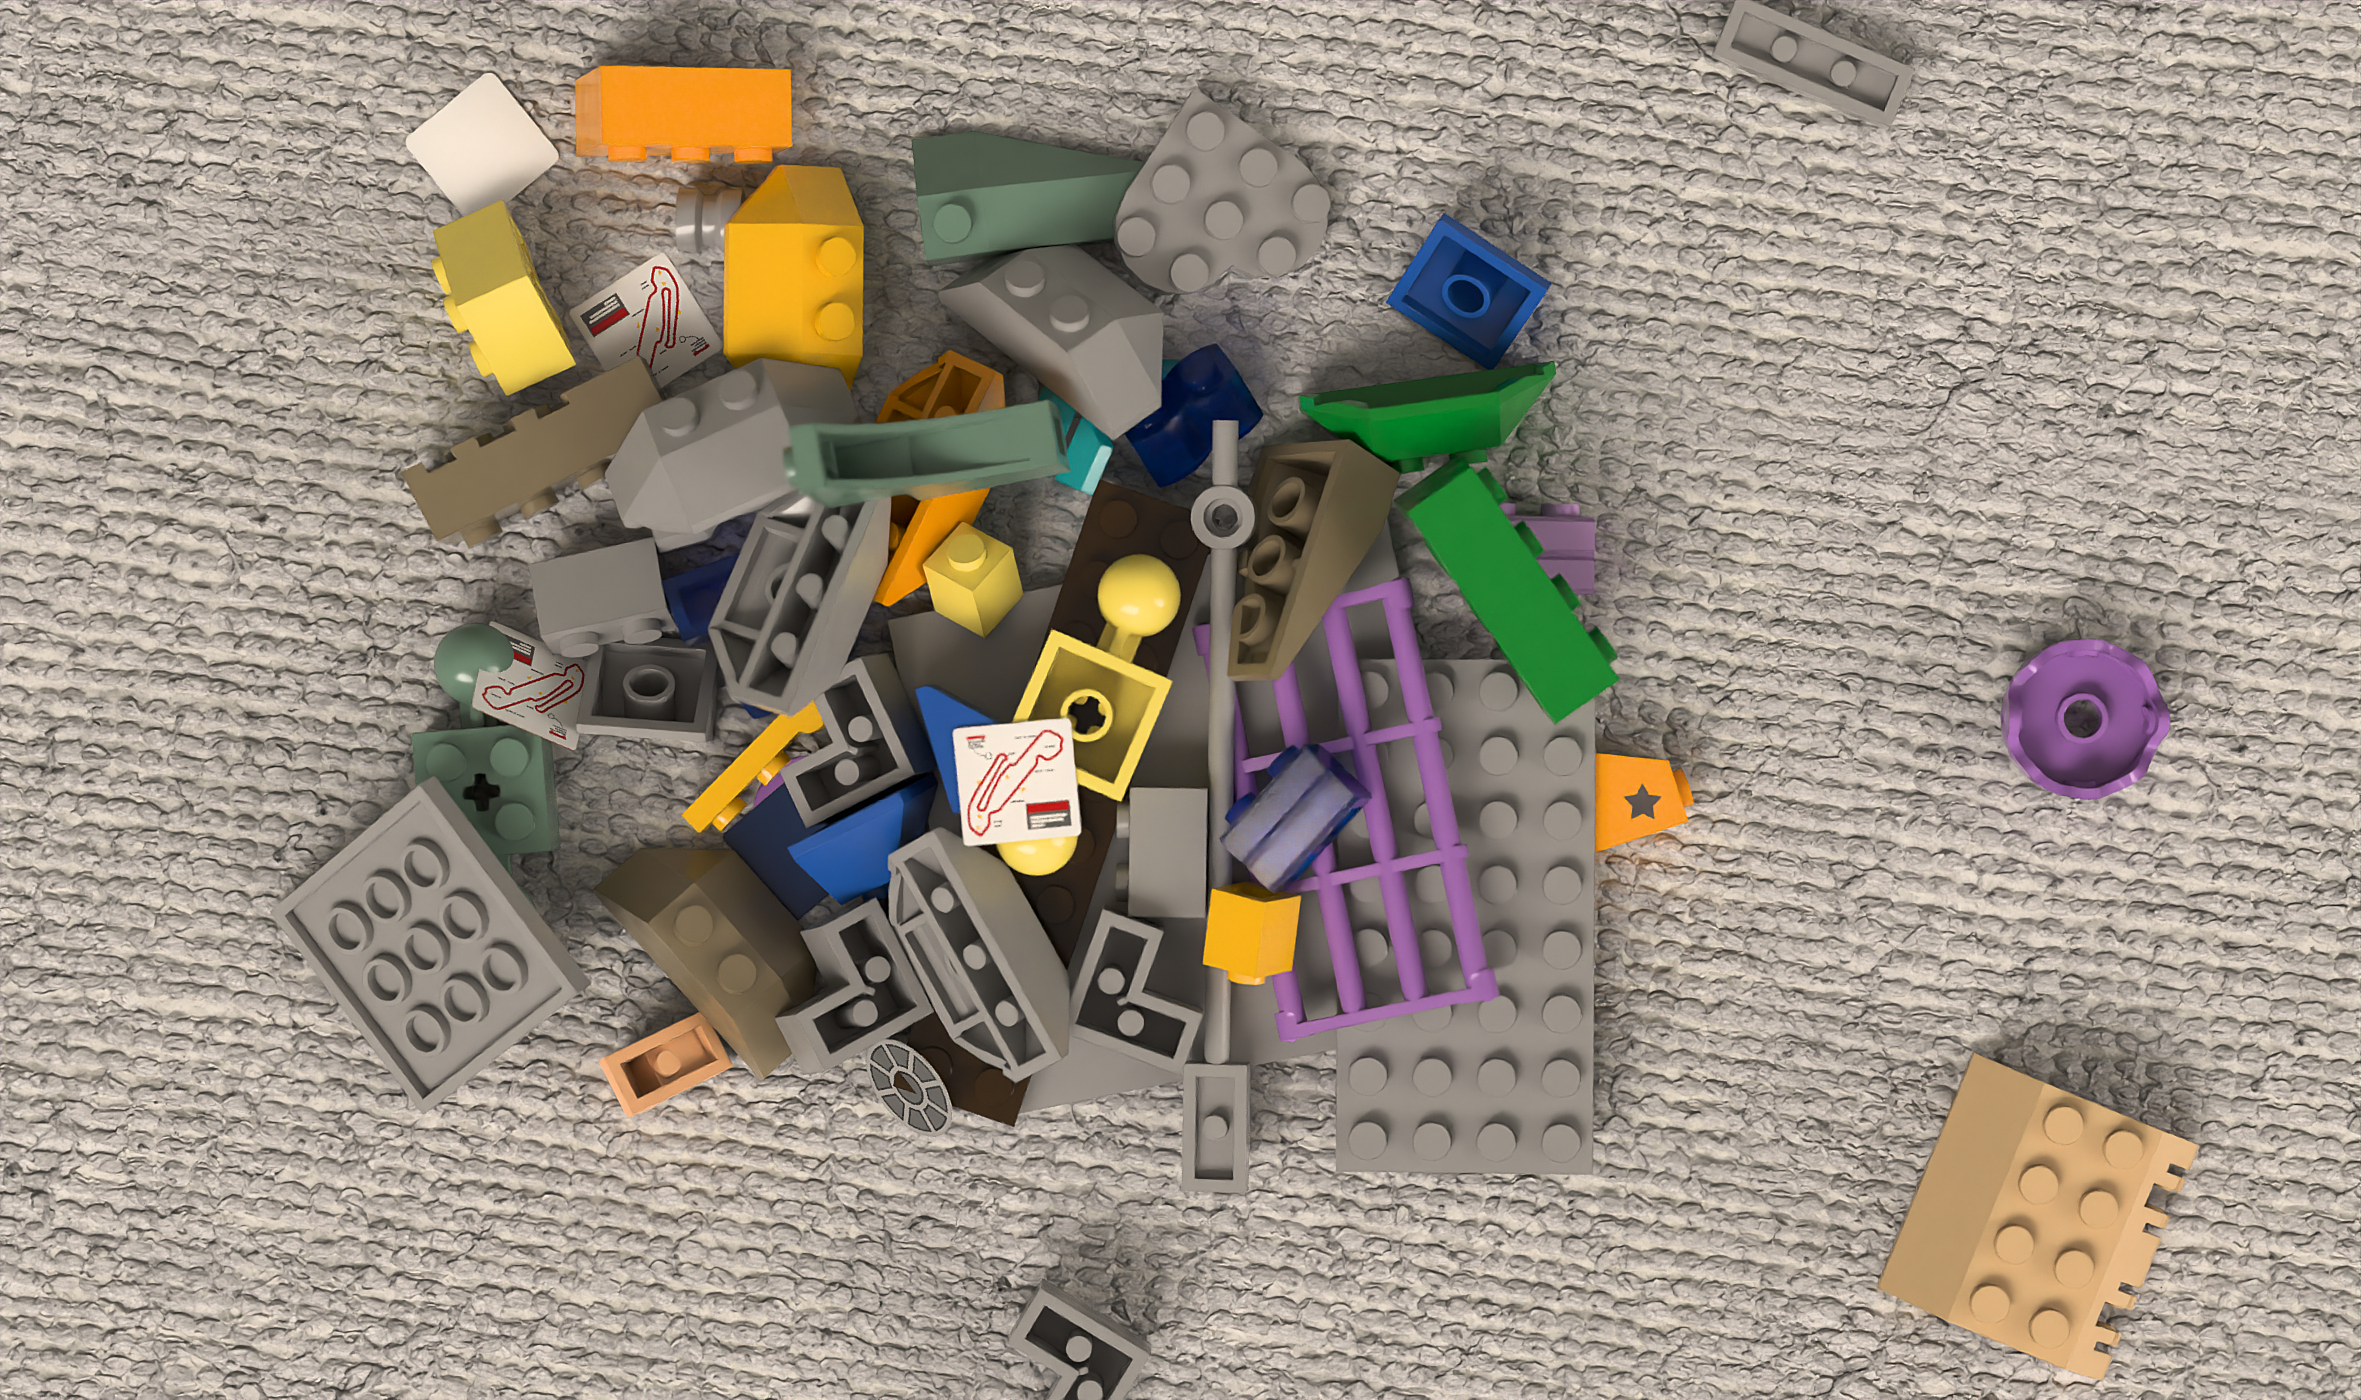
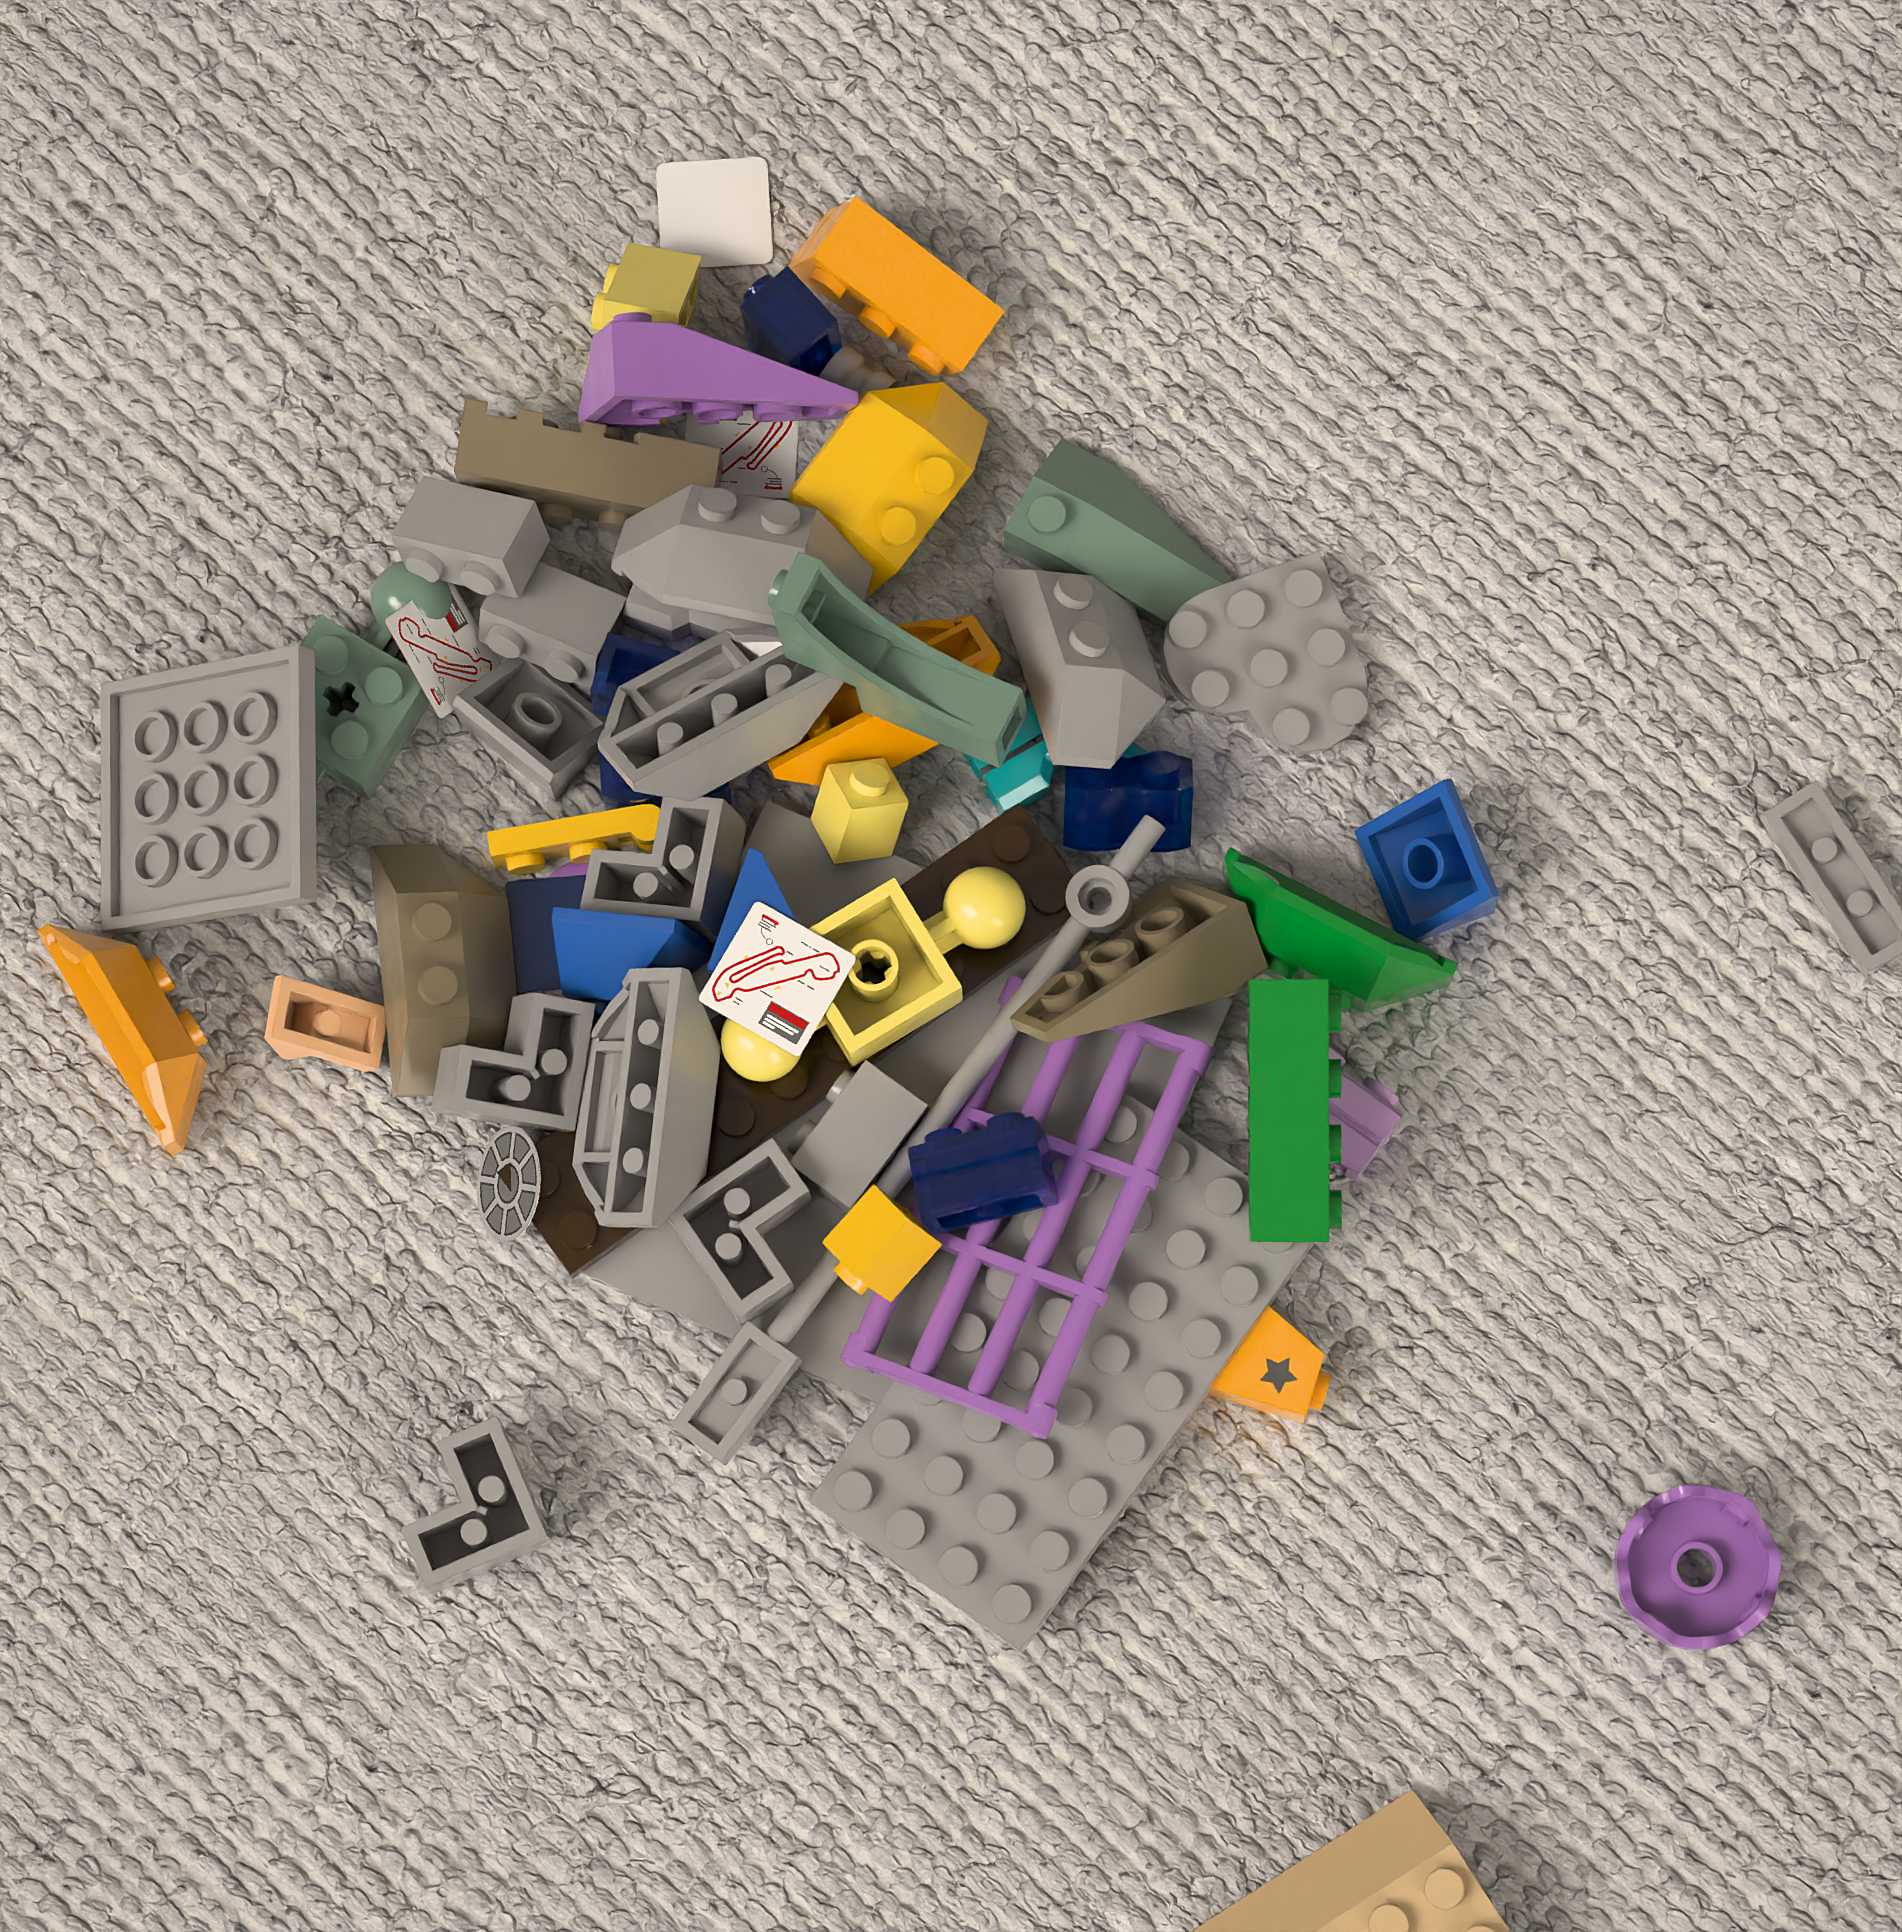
camera: 40 degrees right, 10 degrees down
(489, 582) = (471, 537): none -> light grey brick
(511, 1172) = (137, 1025): none -> light orange wedge
(548, 333) = (663, 370): none -> medium lavender wedge
(623, 213) = (789, 323): none -> clear blue brick

